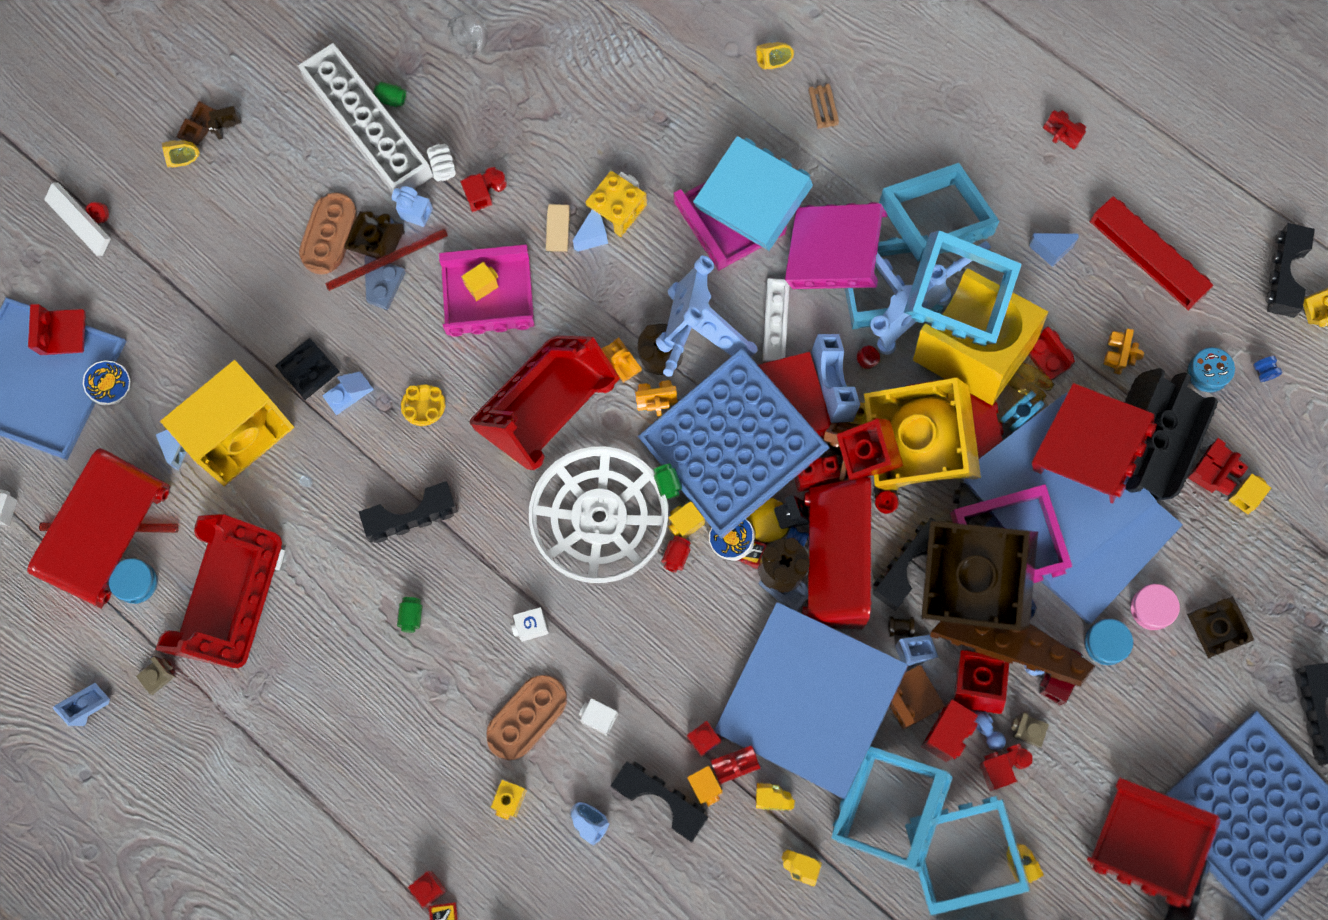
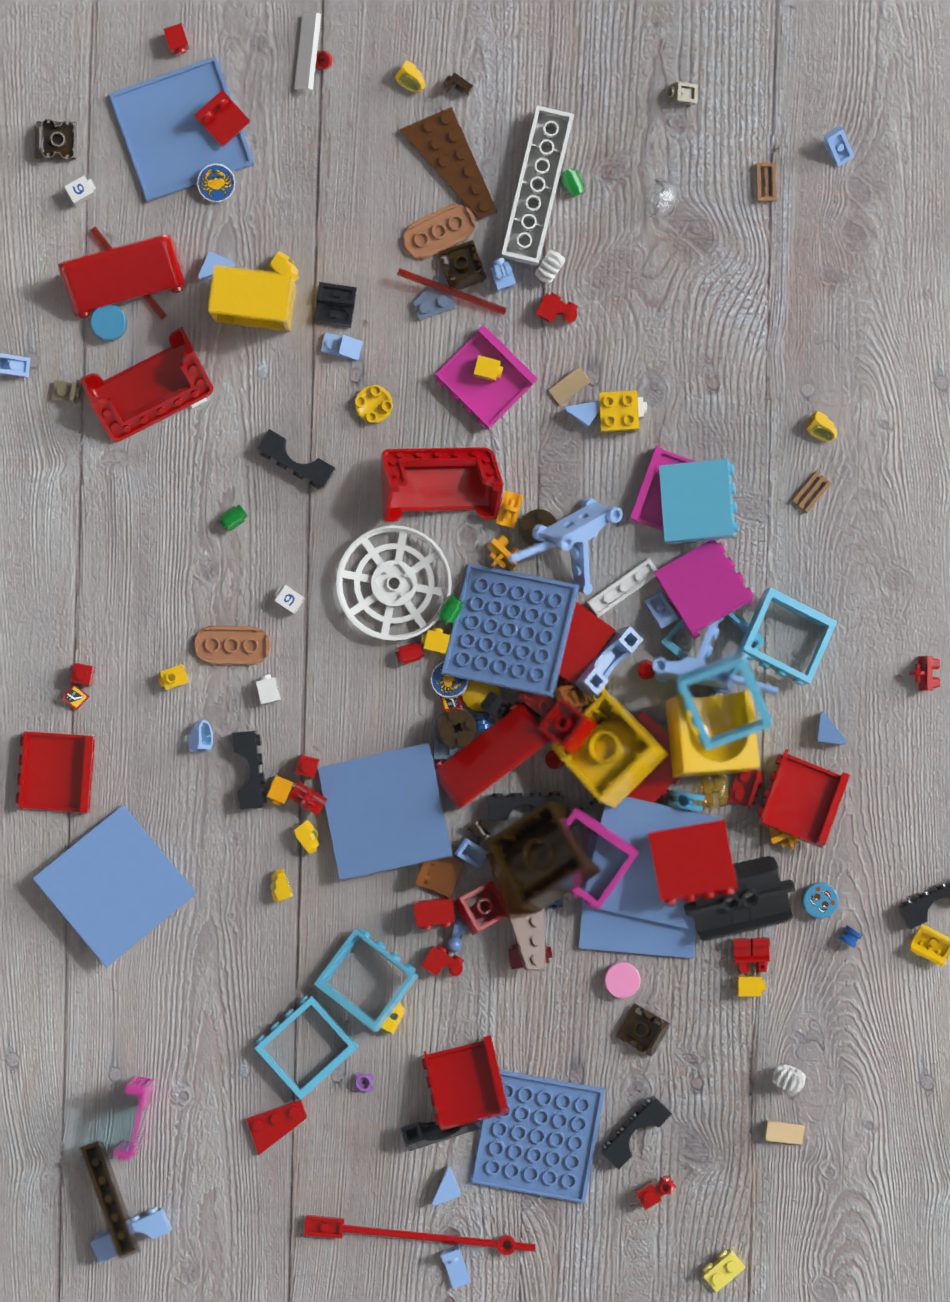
camera: 45 degrees right, 15 degrees up
(197, 127) = (441, 67): reddish brown slope -> none
(273, 174) = (447, 151): none -> reddish brown wing
(825, 302) = (661, 610): none -> light blue slope
(928, 819) = (366, 940): medium azure window -> none
(1029, 729) = (478, 959): dark tan bracket -> none
(1105, 310) = (802, 799): none -> red panel
(1108, 642) = (575, 967): dark azure head -> none
(1151, 253) = (876, 800): red brick -> none

